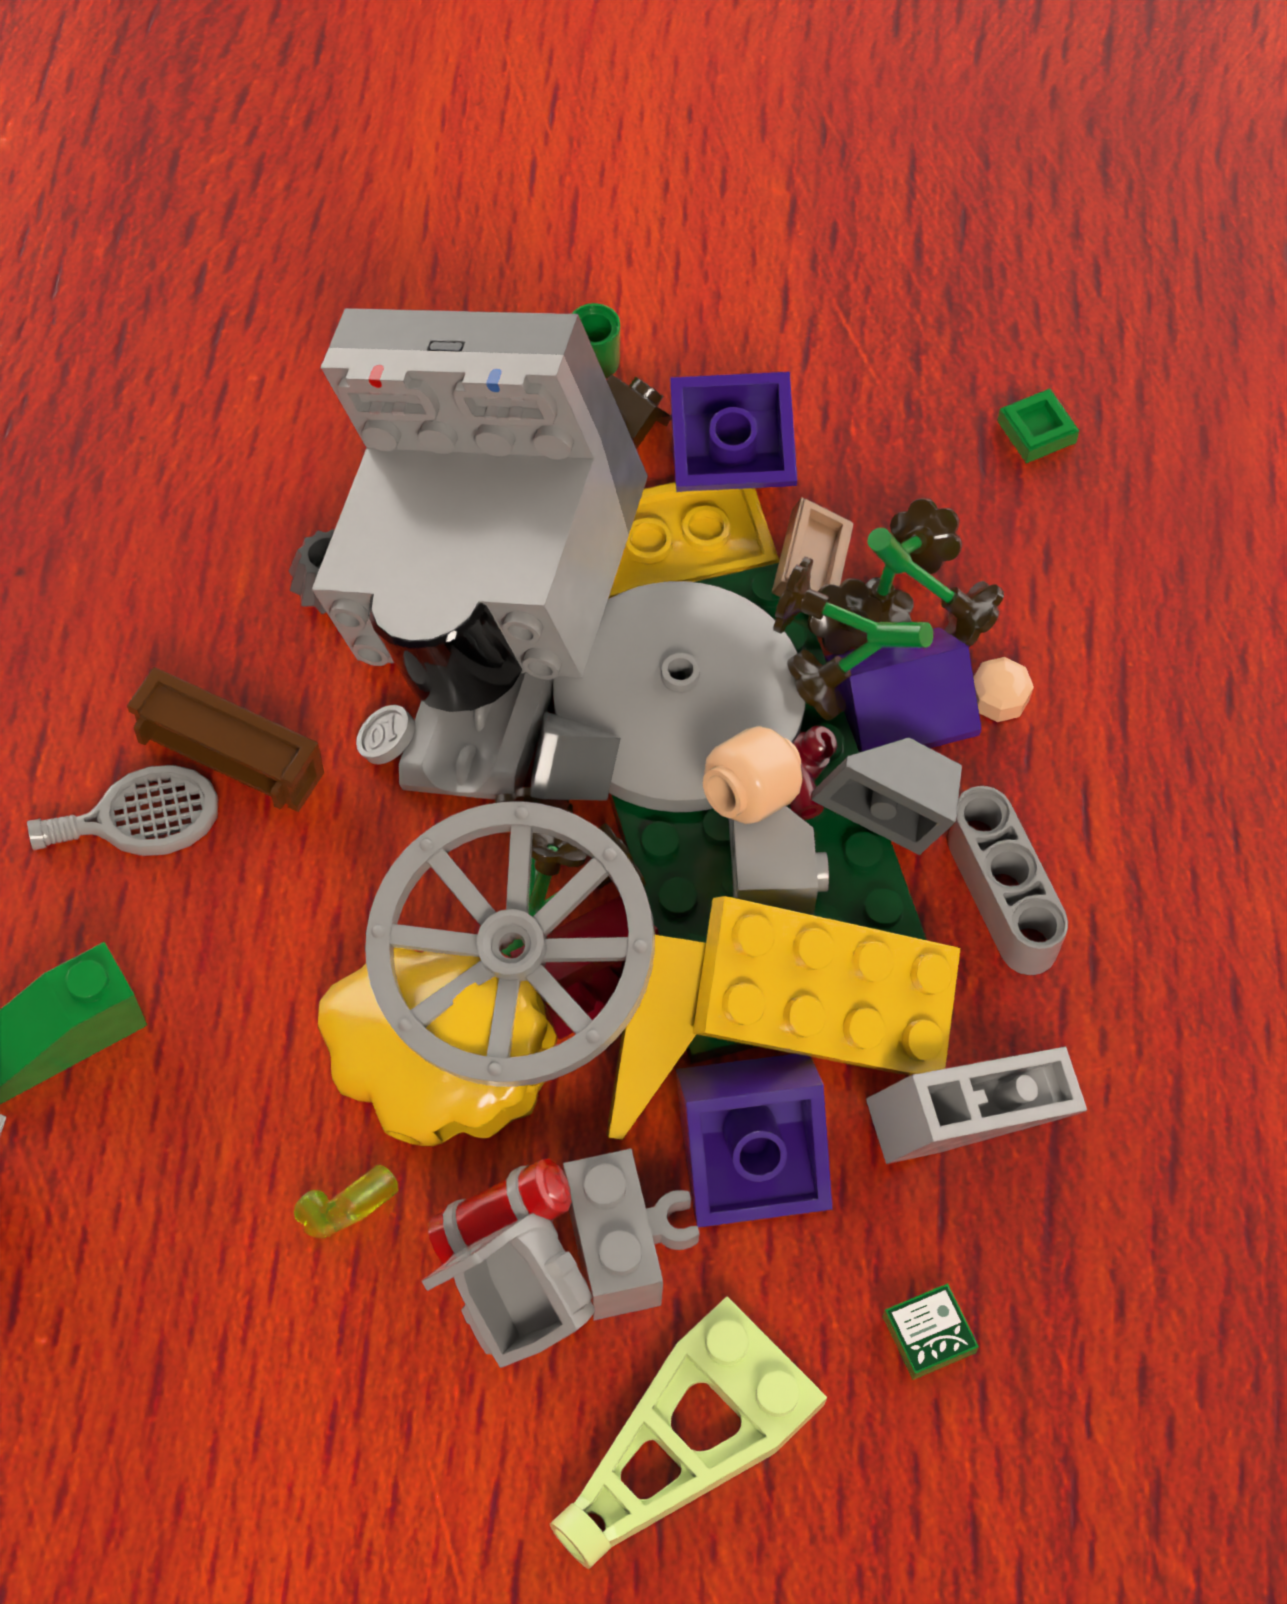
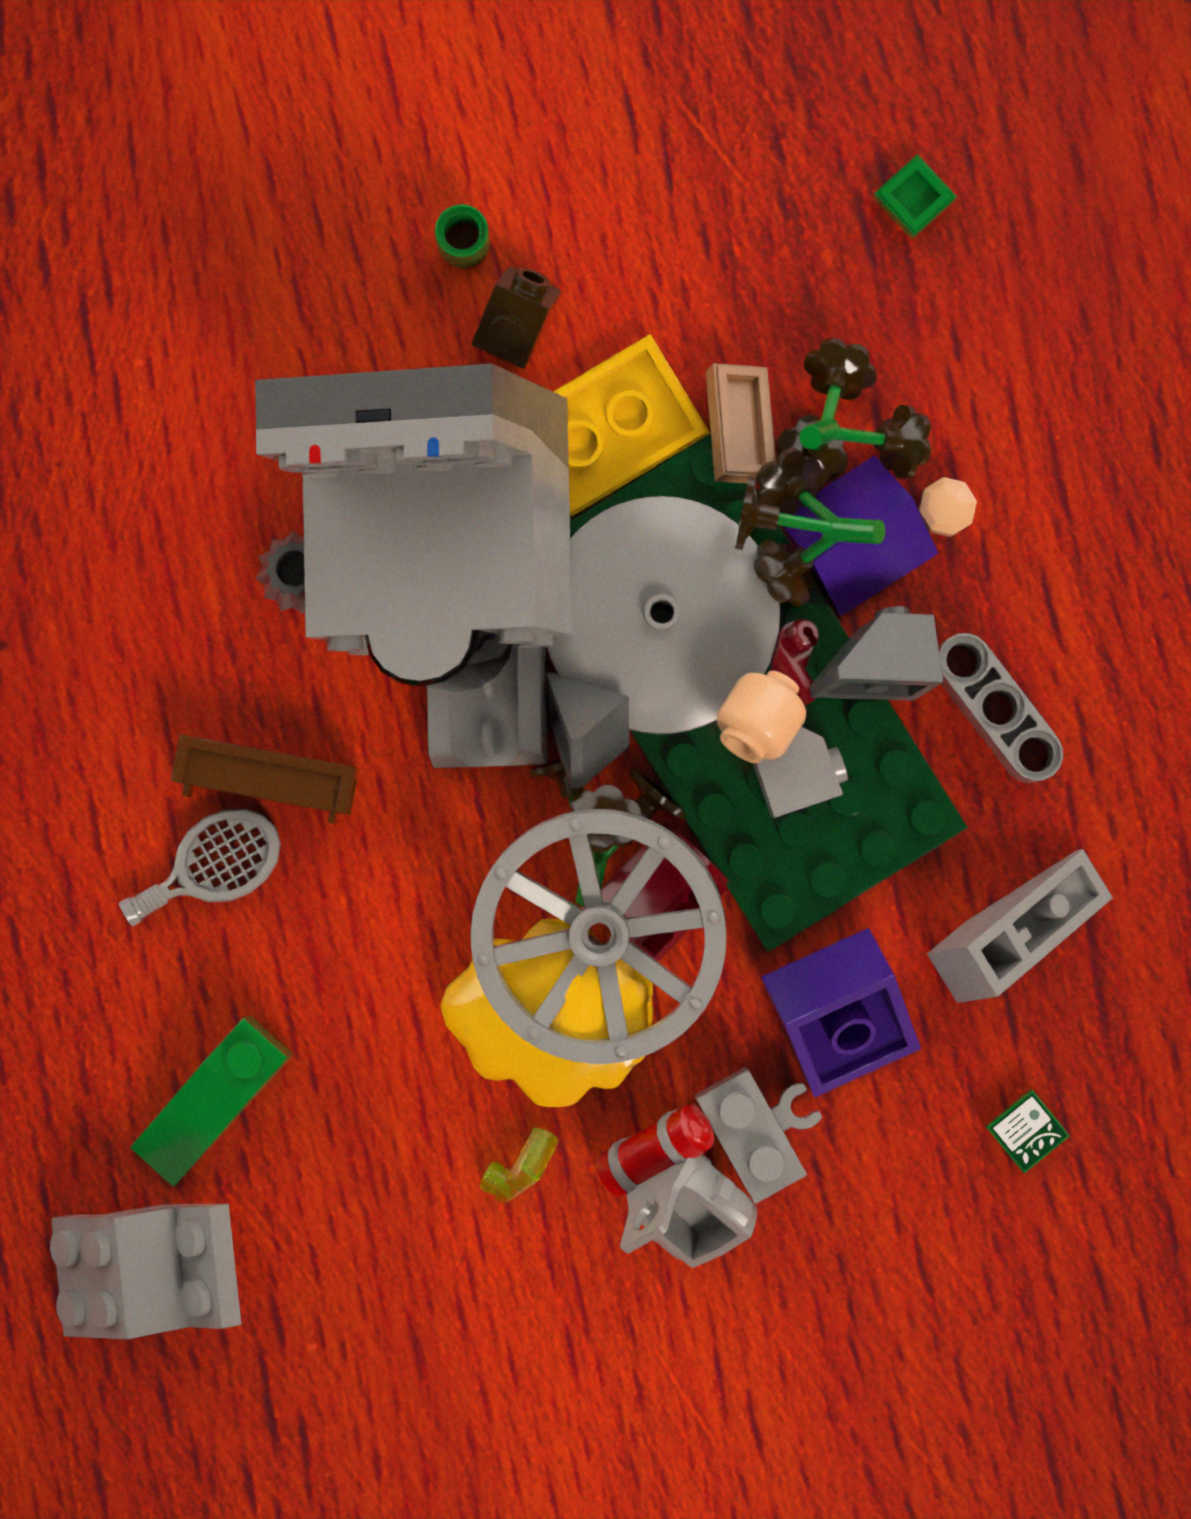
camera: 20 degrees left, 25 degrees up
(385, 734) = (405, 723): light grey piece -> none
(657, 1030) = (754, 935): yellow slope -> none
(733, 431) = (633, 324): dark purple slope -> none
(747, 1375) = (890, 1209): yellowish green plate -> none
(825, 988) = (873, 880): yellow plate -> none

